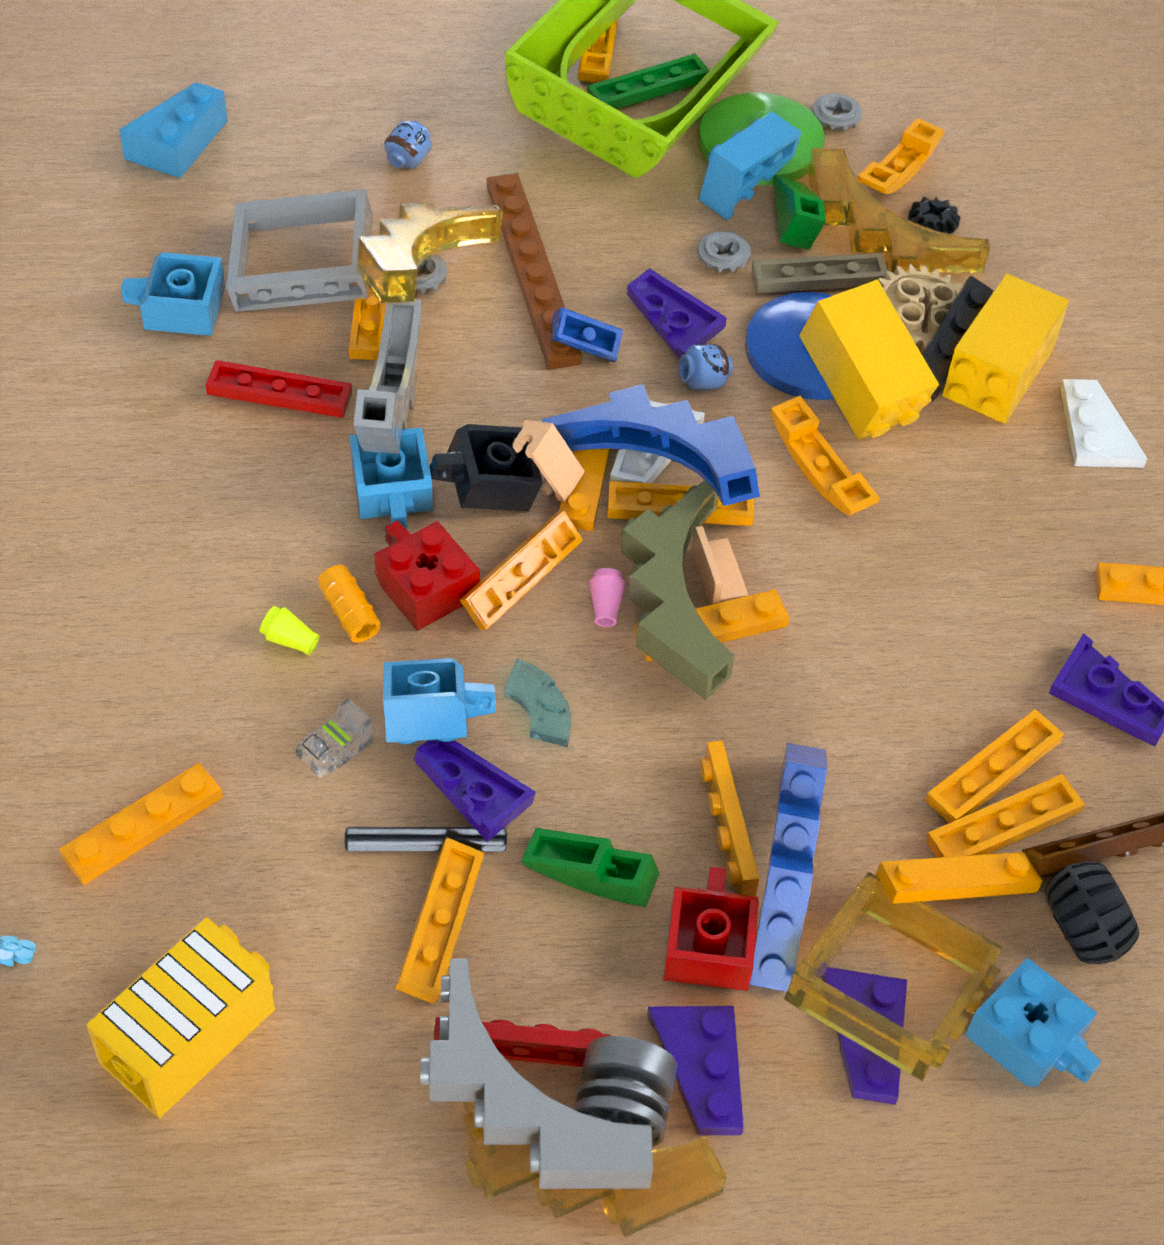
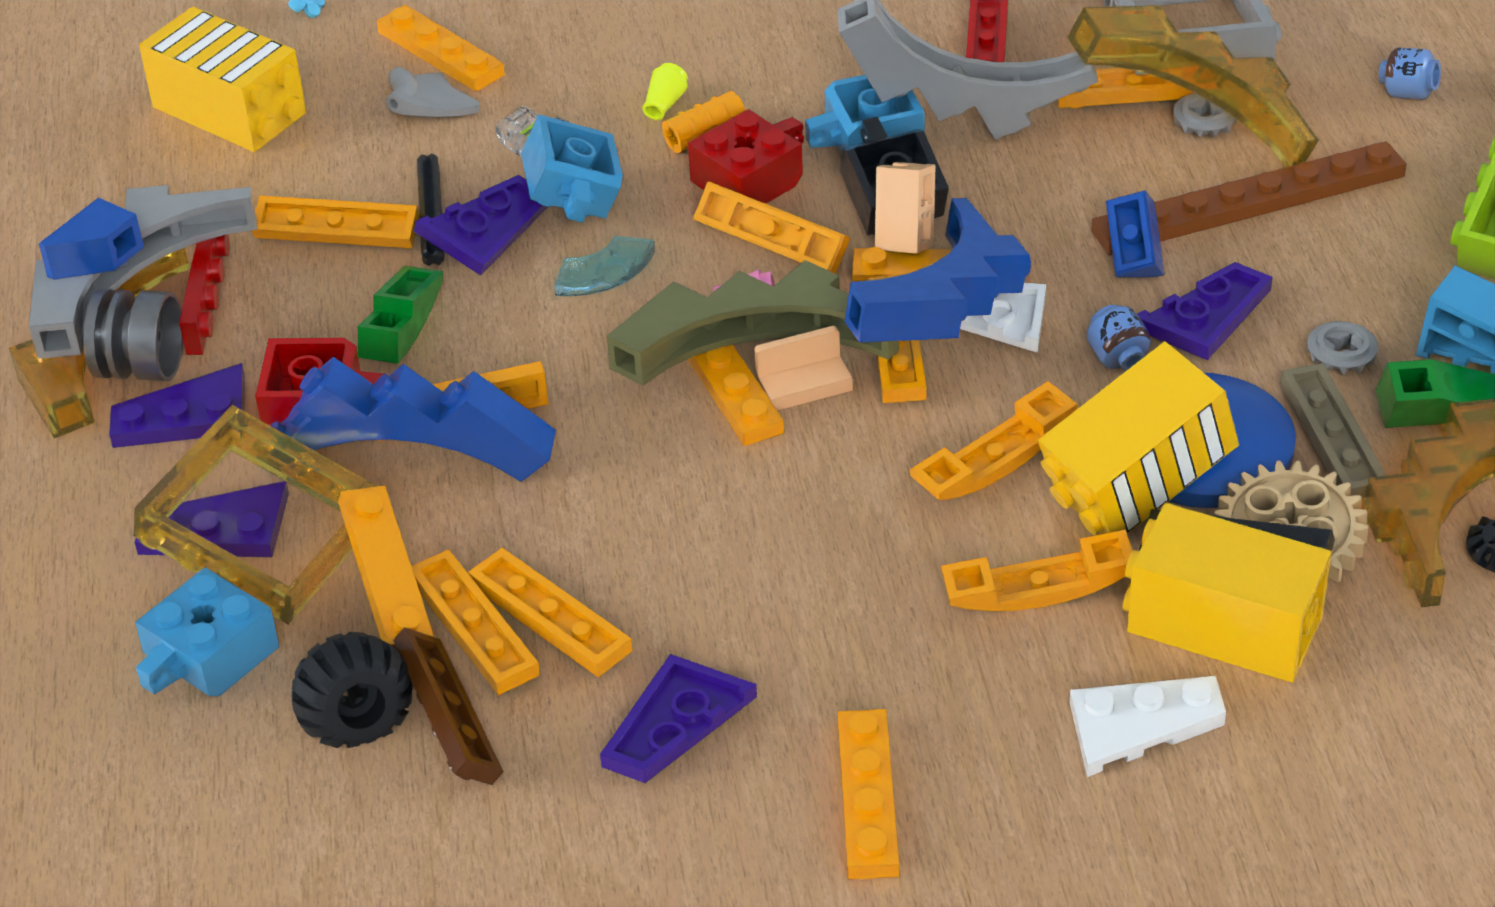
camera: 90 degrees right, 10 degrees down
(228, 838) = (427, 95): none -> light grey arm
(545, 1095) = (92, 241): none -> blue slope
(962, 452) = (1041, 581): none -> light orange slope

